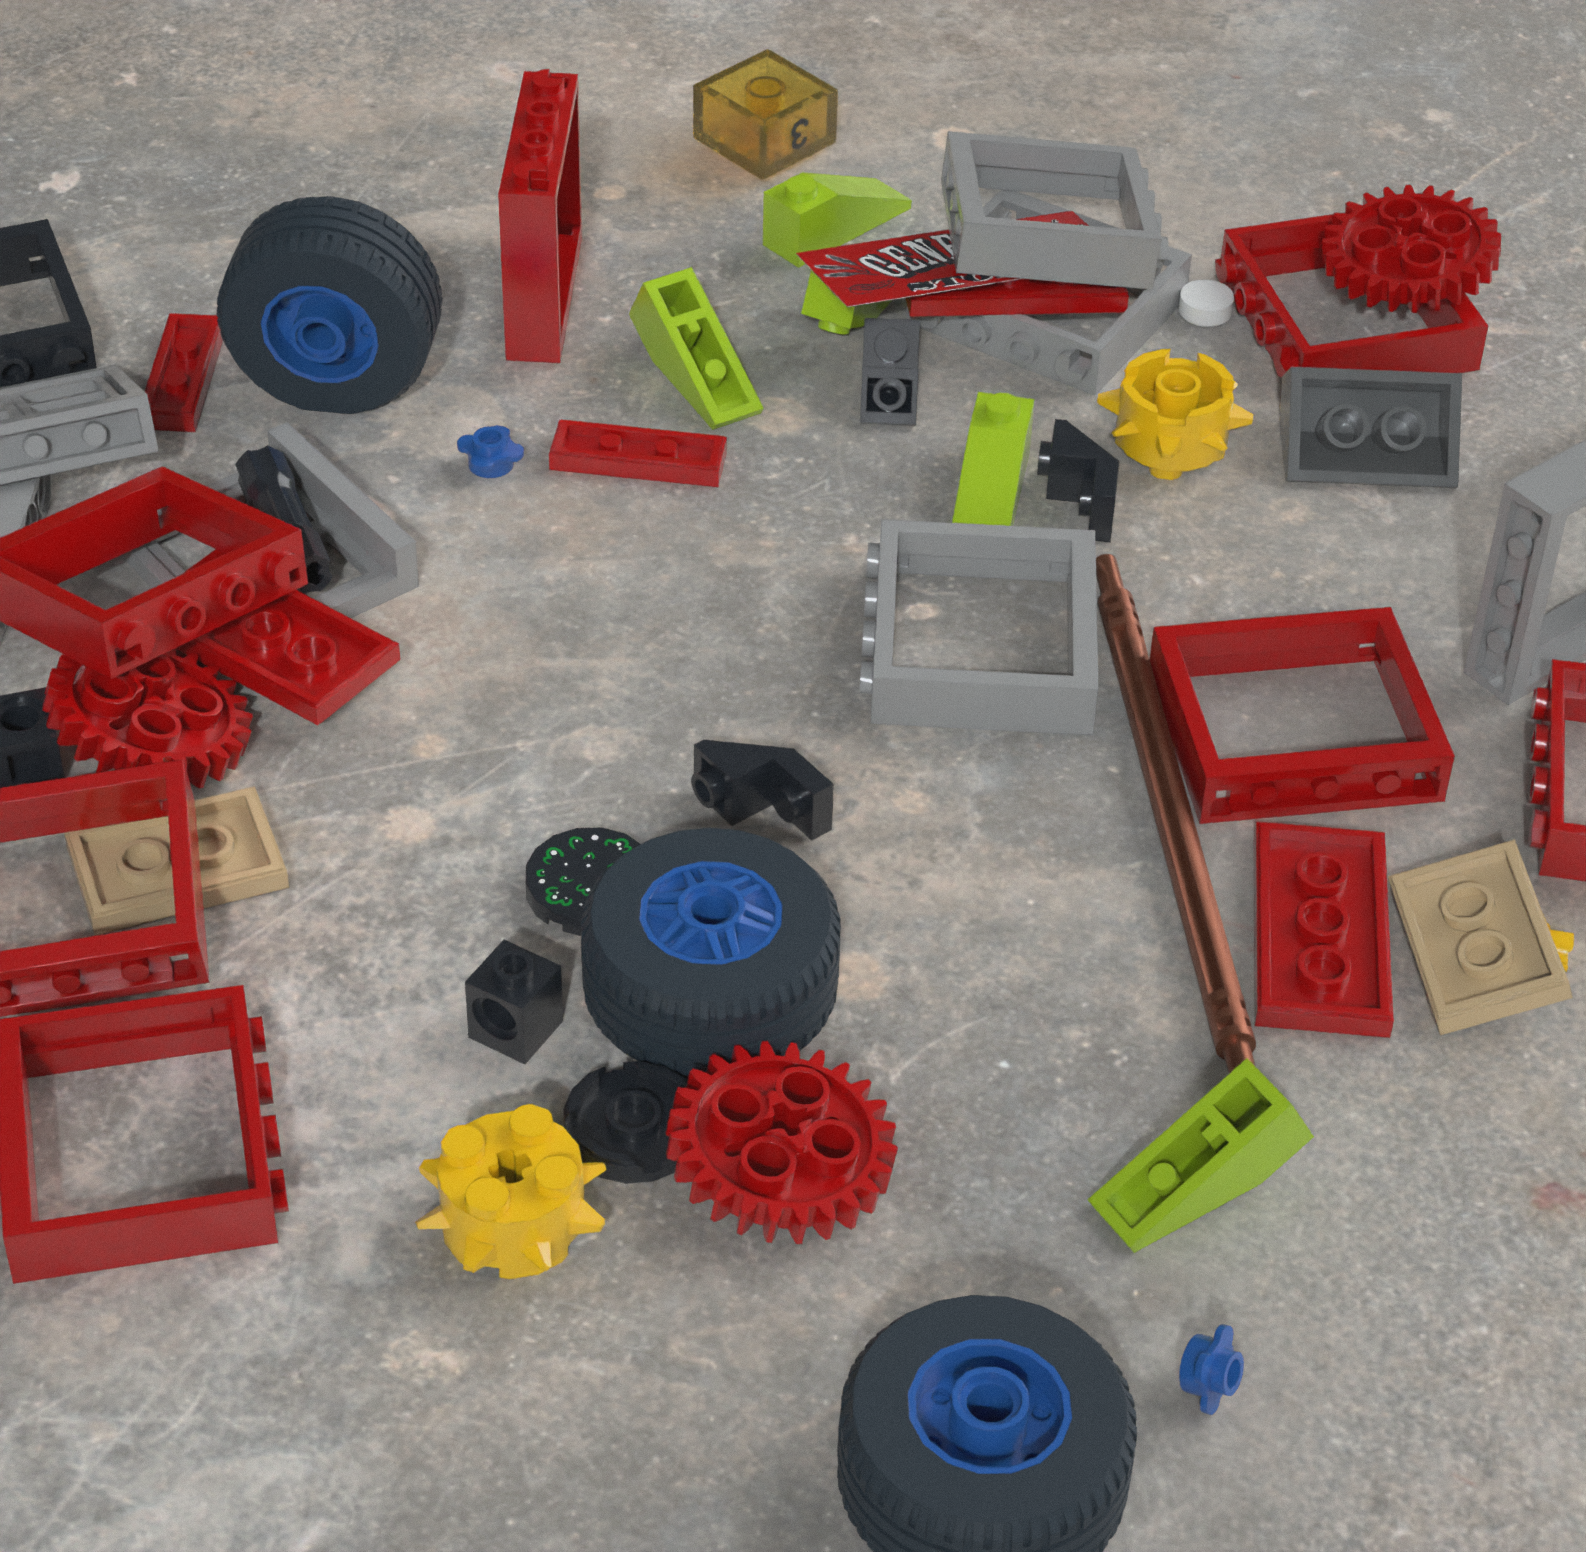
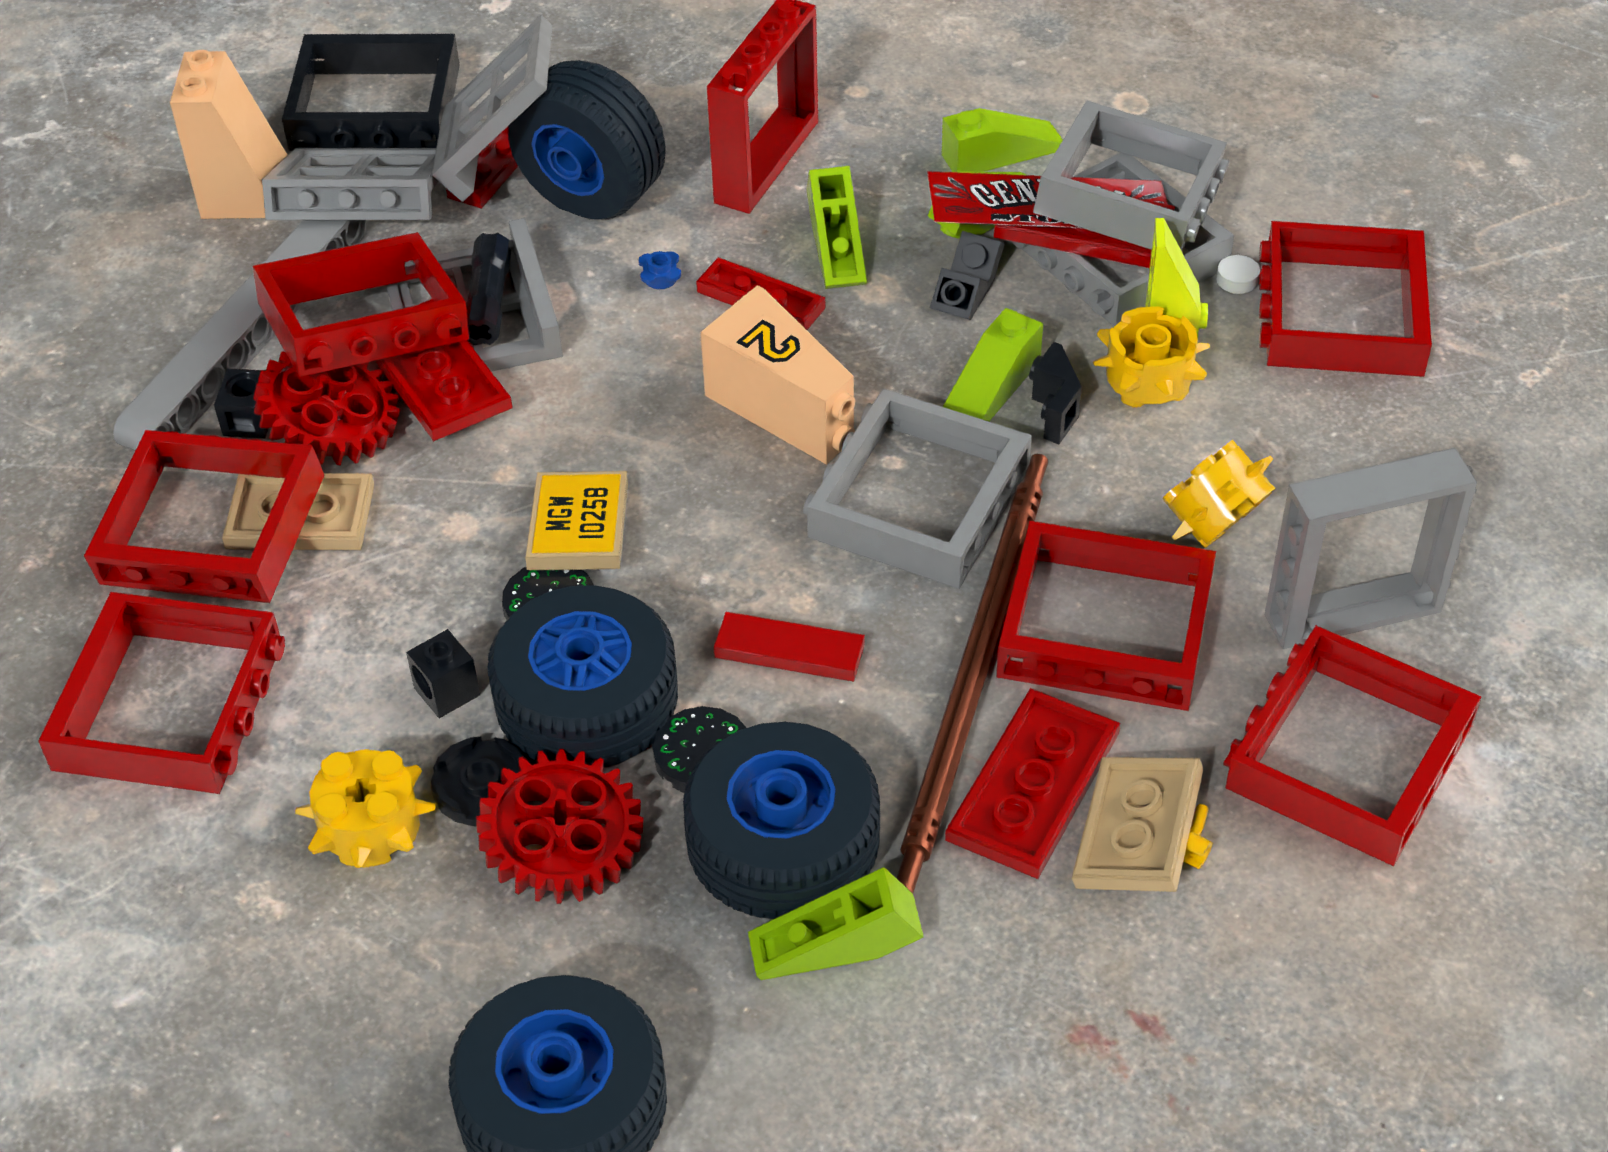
camera: 25 degrees right, 5 degrees up
(130, 338) = (462, 132): none -> light grey window
(574, 773) = (577, 521): none -> tile
(747, 536) = (778, 376): none -> light nougat slope
(750, 777) = (694, 558): black slope -> none
(765, 113) = (987, 55): clear yellow brick -> none
(899, 1004) = (687, 738): none -> black tile
(932, 853) = (789, 646): none -> red tile
(1066, 1048) = (780, 817): none -> black wheel
(1158, 311) = (1172, 281): none -> neon yellow slope
(1211, 1368) = (753, 1082): blue plate -> none
(1361, 543) = (1218, 494): none -> yellow brick
(1371, 427) = (1297, 405): dark grey slope -> none
(1411, 248) = (1399, 269): red gear -> none

